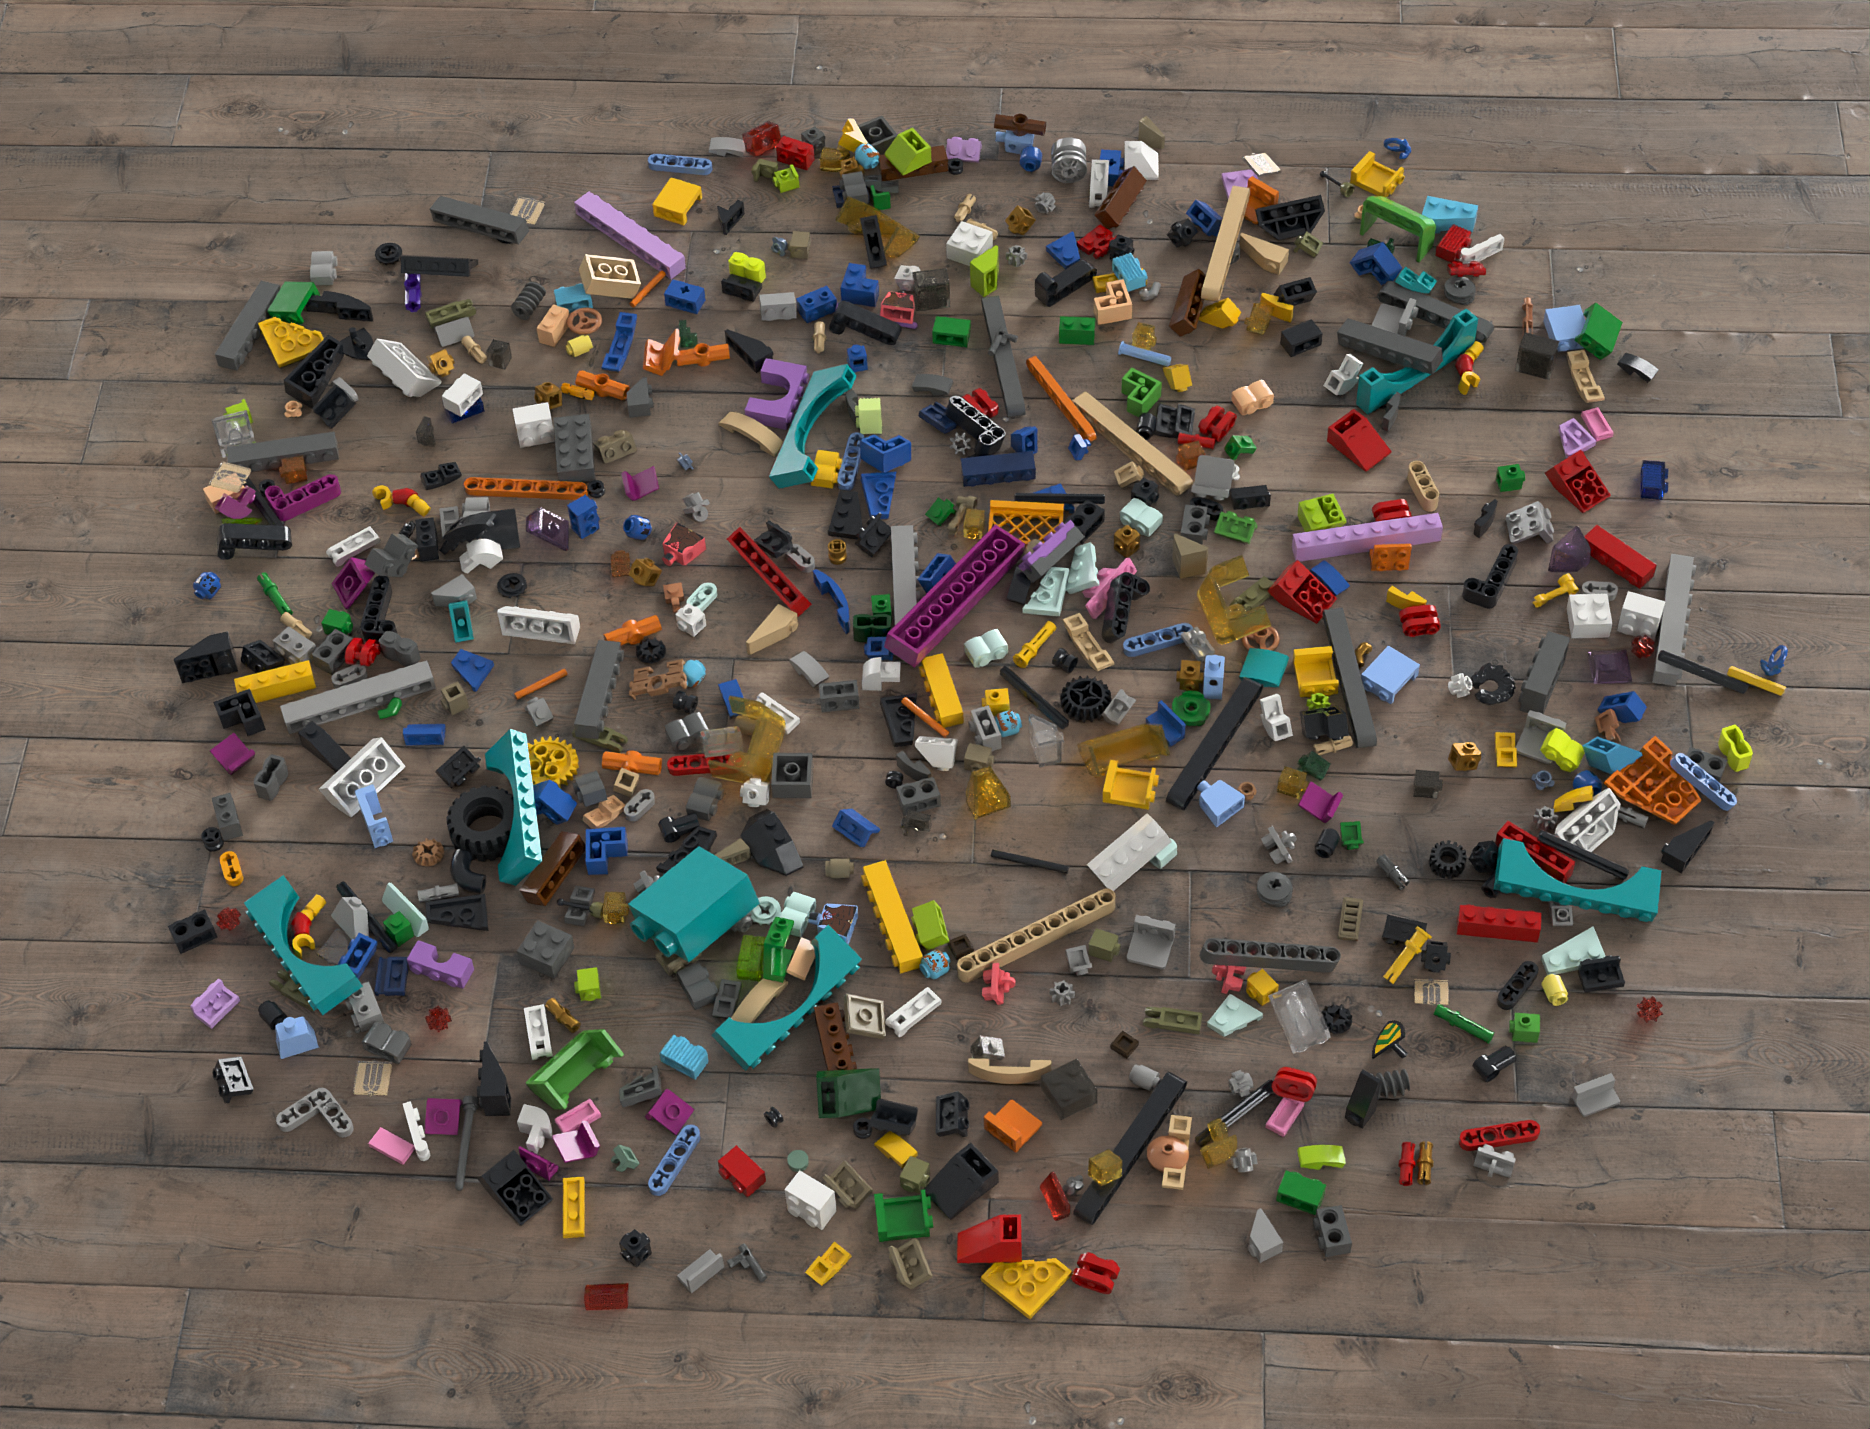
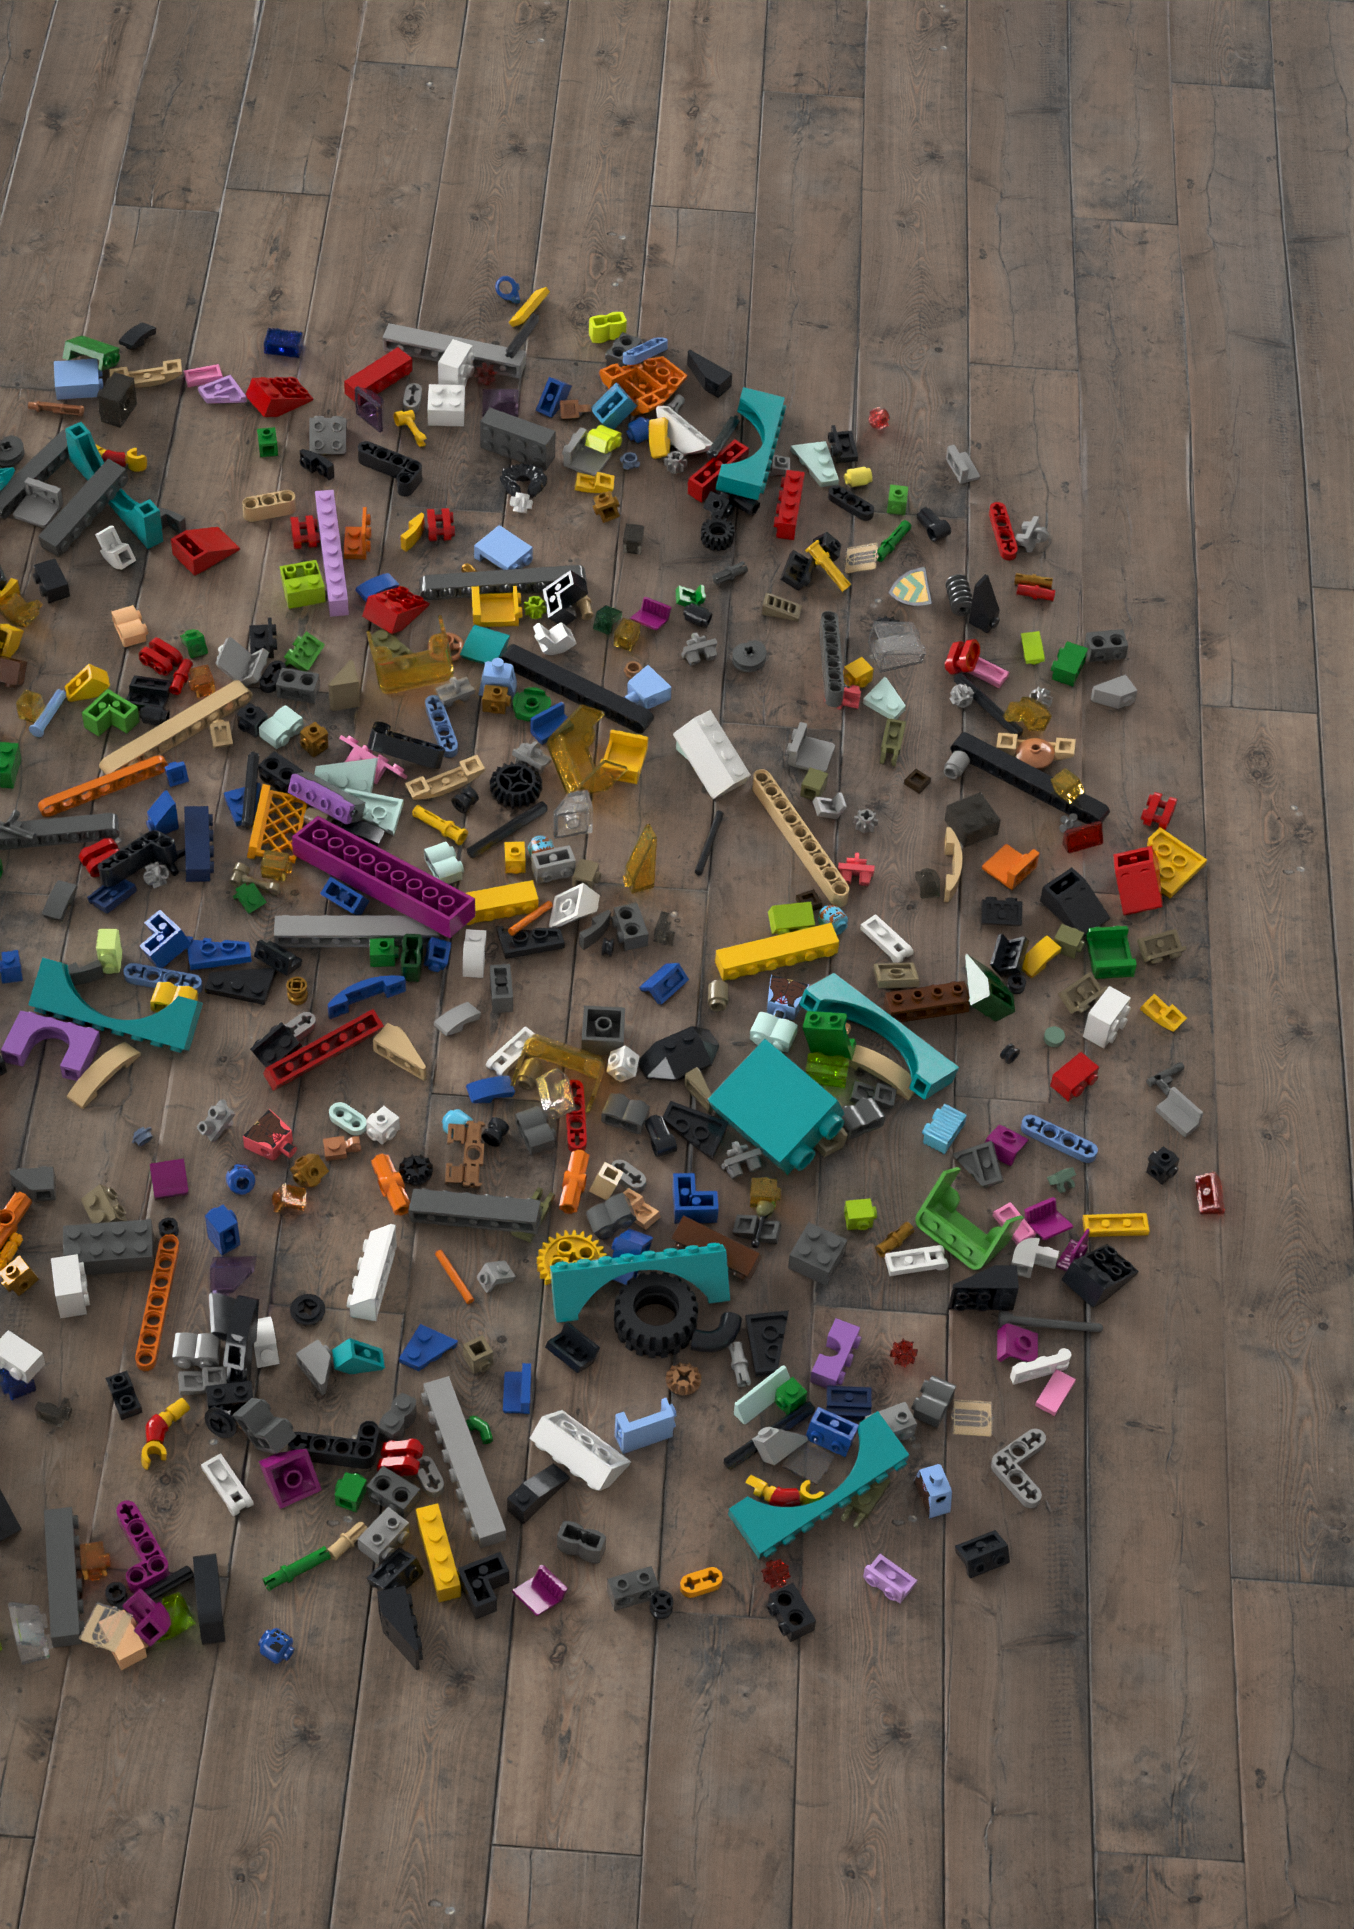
camera: 95 degrees left, 0 degrees up
(271, 1013) = (901, 1517): black brick -> none

